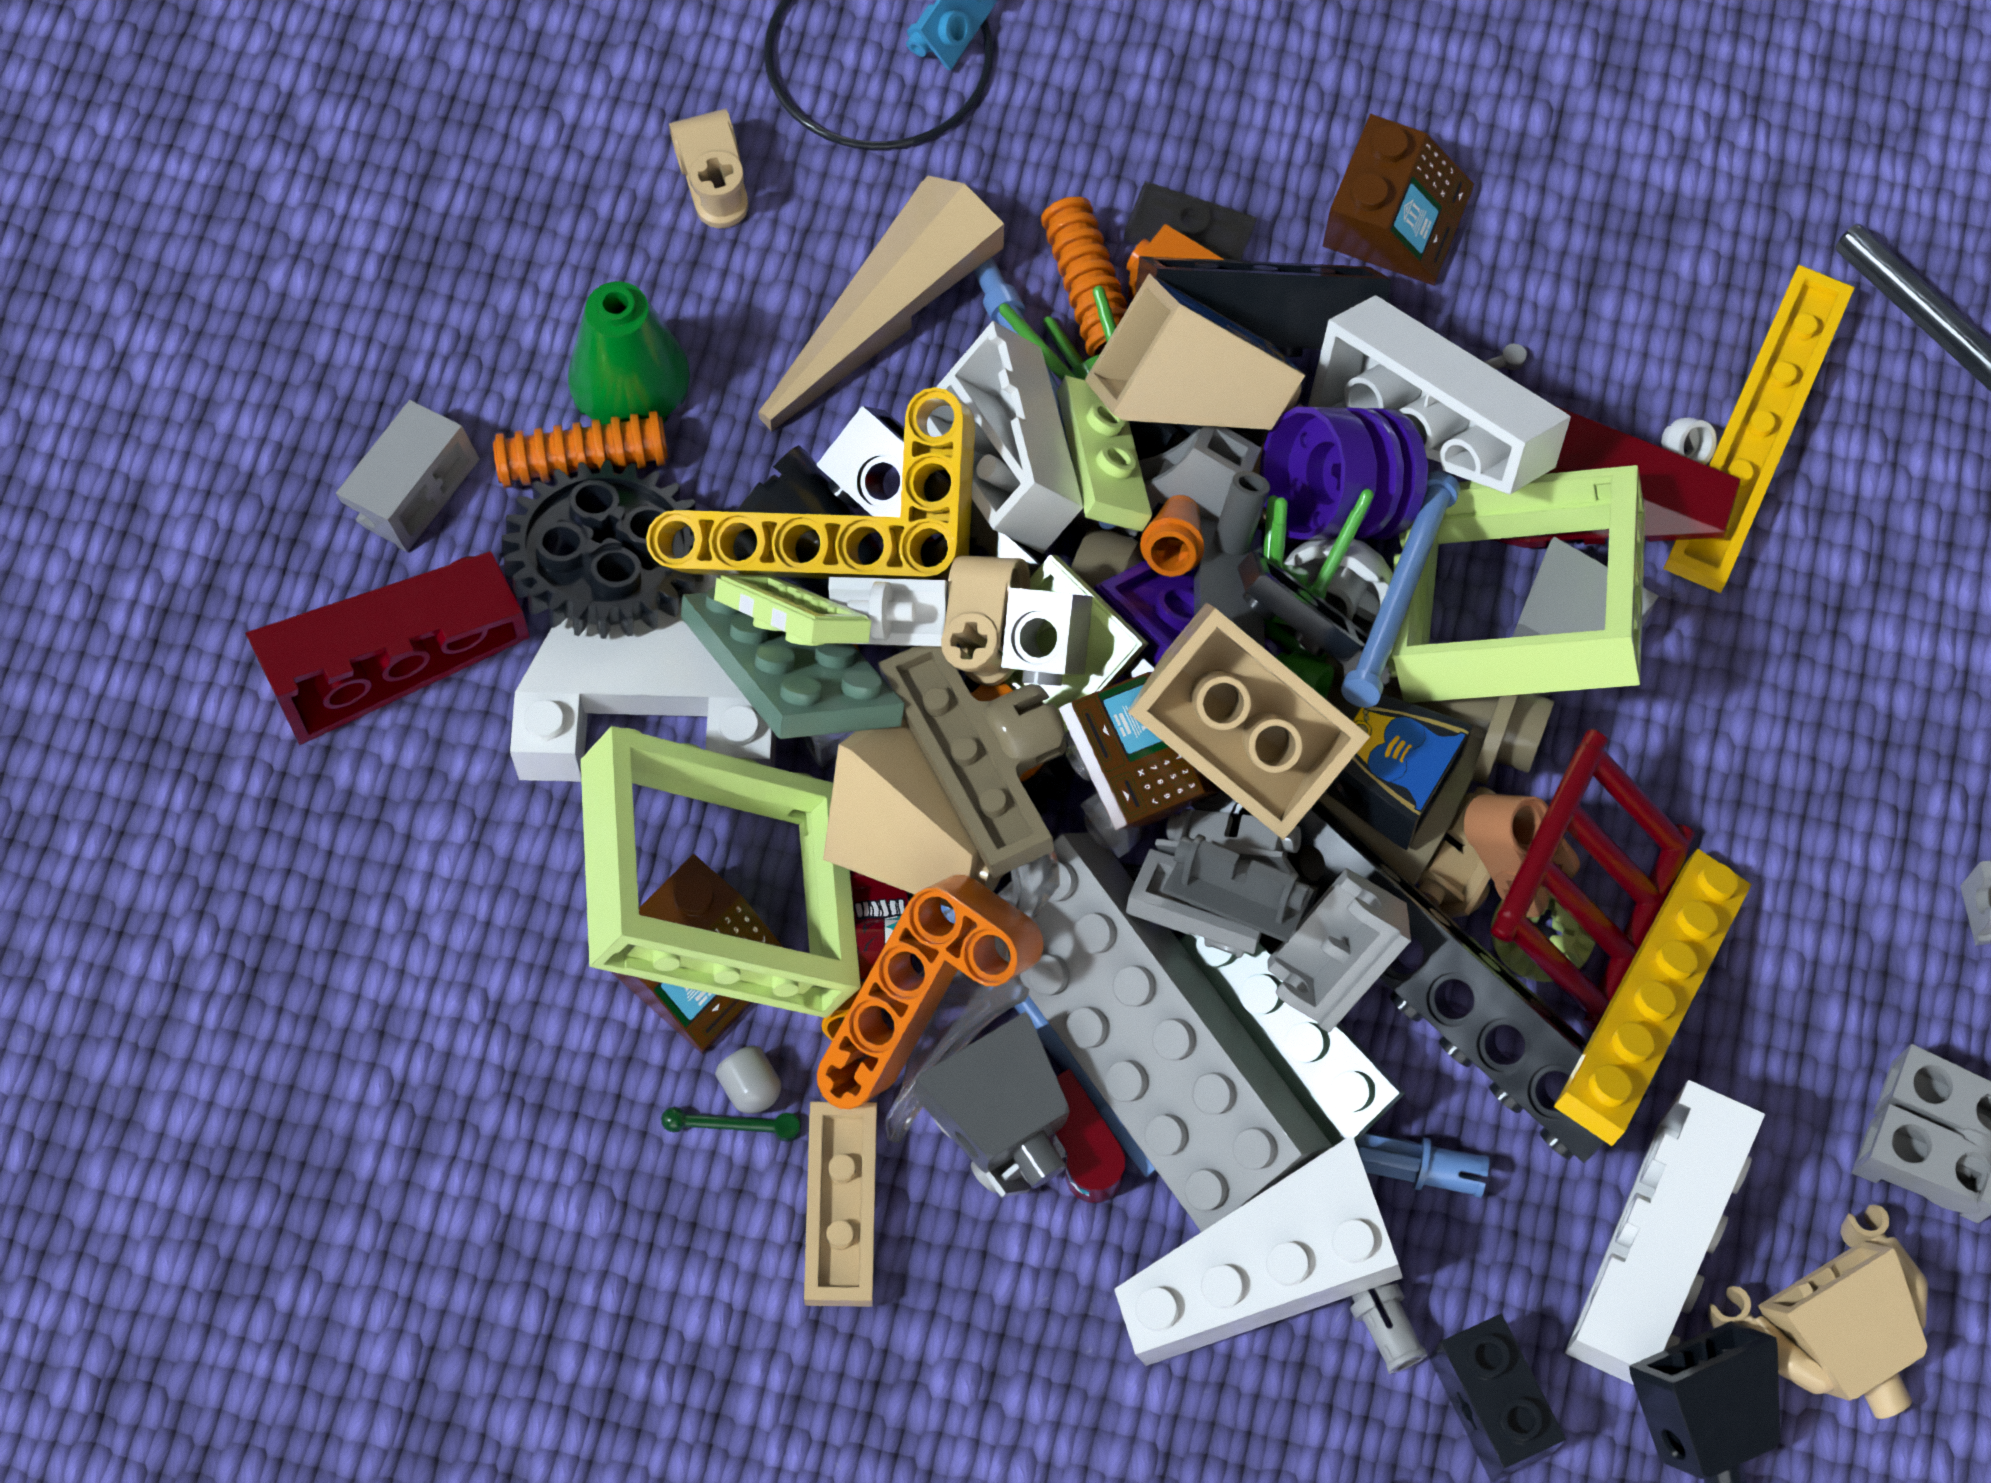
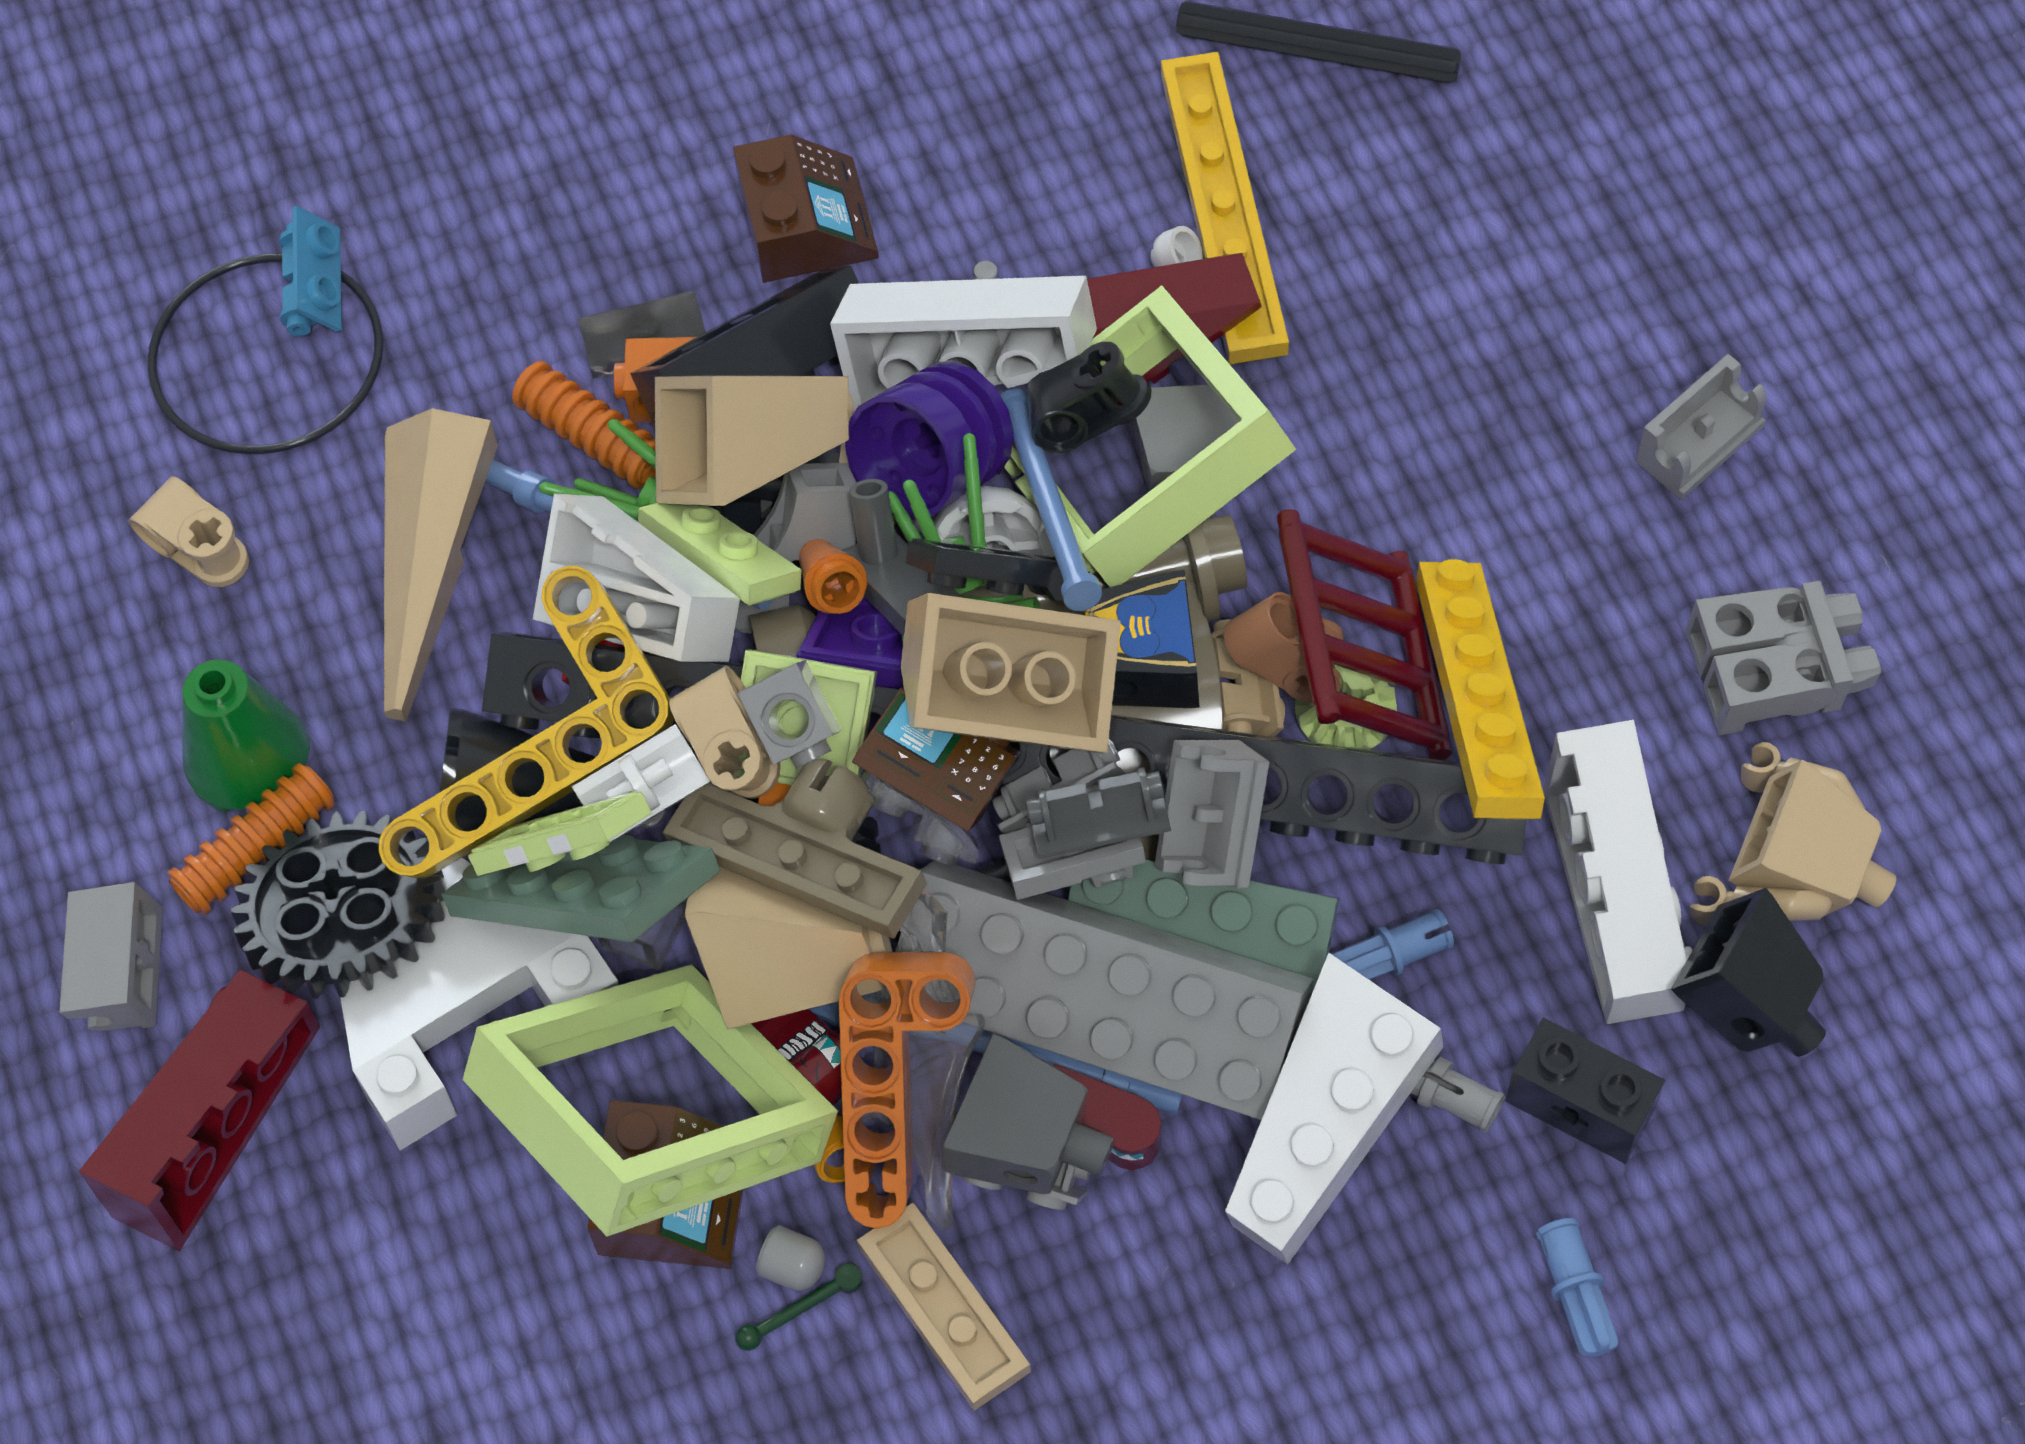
camera: 30 degrees left, 5 degrees down
(1490, 518) = (1081, 398): none -> black piece

